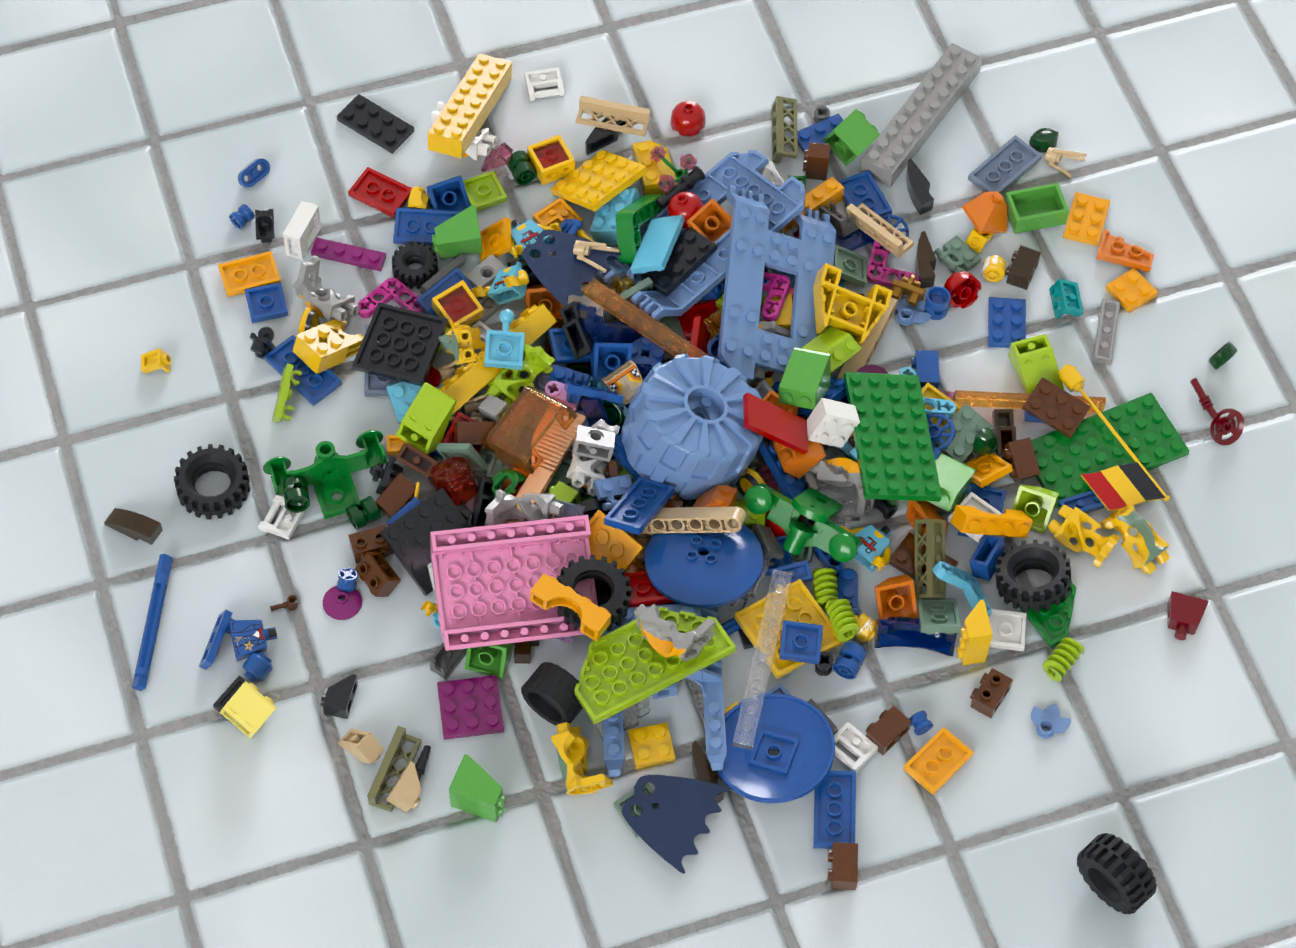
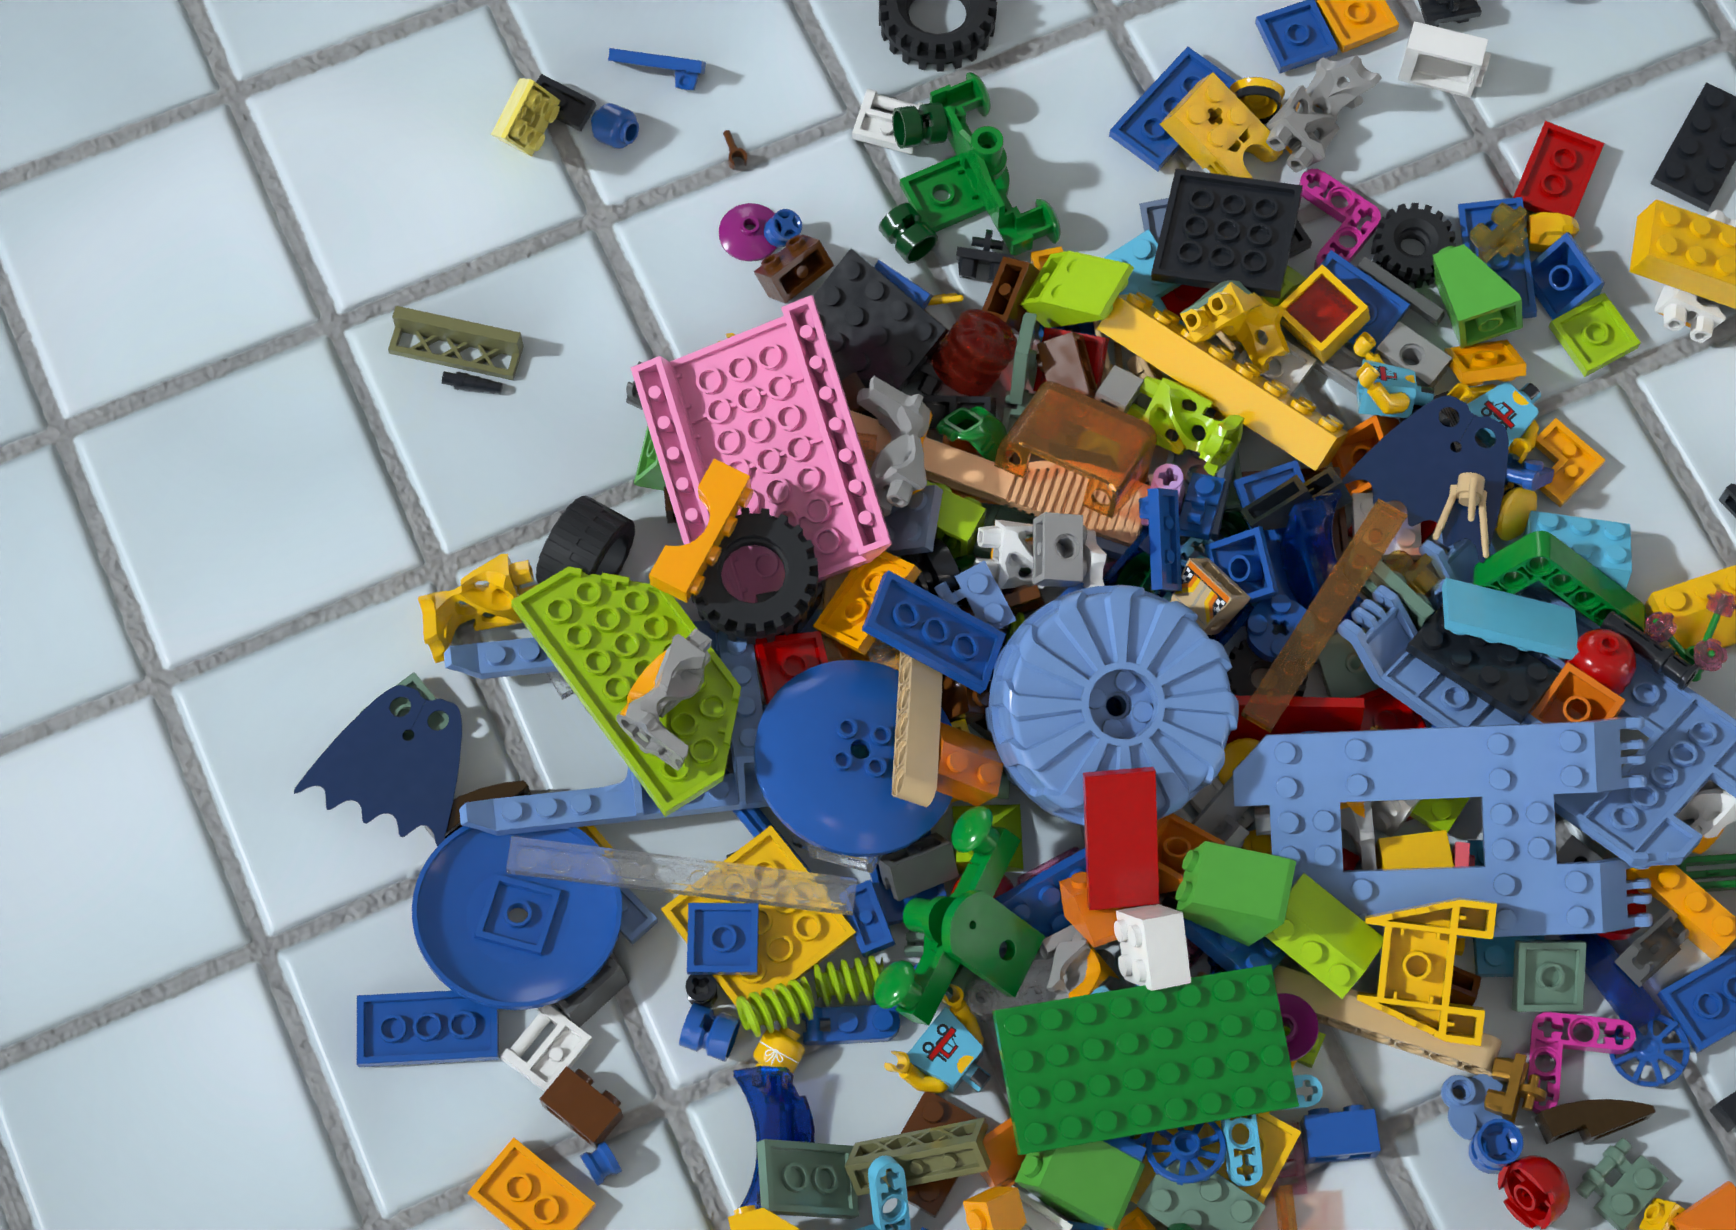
camera: 85 degrees right, 10 degrees up
(250, 637) = (661, 104): blue torso -> none
(262, 344) = (1206, 36): black hips -> none
(285, 393) = (1115, 84): lime plate -> none
(340, 697) = (571, 249): black slope -> none
(348, 254) = (1420, 144): magenta plate -> none
(361, 745) = (489, 290): tan slope -> none
(368, 541) = (848, 234): reddish brown brick -> none
(396, 495) = (942, 273): reddish brown brick -> none
(406, 790) = (415, 362): tan slope -> none
(423, 217) = (1505, 238): none -> clear yellow hips
(470, 707) = (576, 441): magenta plate -> none
(476, 791) = (415, 460): bright green slope -> none
(498, 157) = (1664, 344): clear pink slope -> none
(503, 347) = (1227, 382): medium azure plate -> none
(521, 168) = (1658, 386): dark green wheel -> none
(551, 159) = (1681, 432): yellow piece -> none
(599, 180) = (1647, 514): yellow plate -> none
(651, 745) = (528, 724): yellow plate -> none
(747, 480) = (1043, 840): piece -> none
(774, 290) = (1460, 832): dark pink beam -> none
(844, 866) = (318, 1046): reddish brown brick -> none
(881, 232) = (1630, 1014): tan fence -> none
(896, 598) = (844, 1103): orange slope -> none

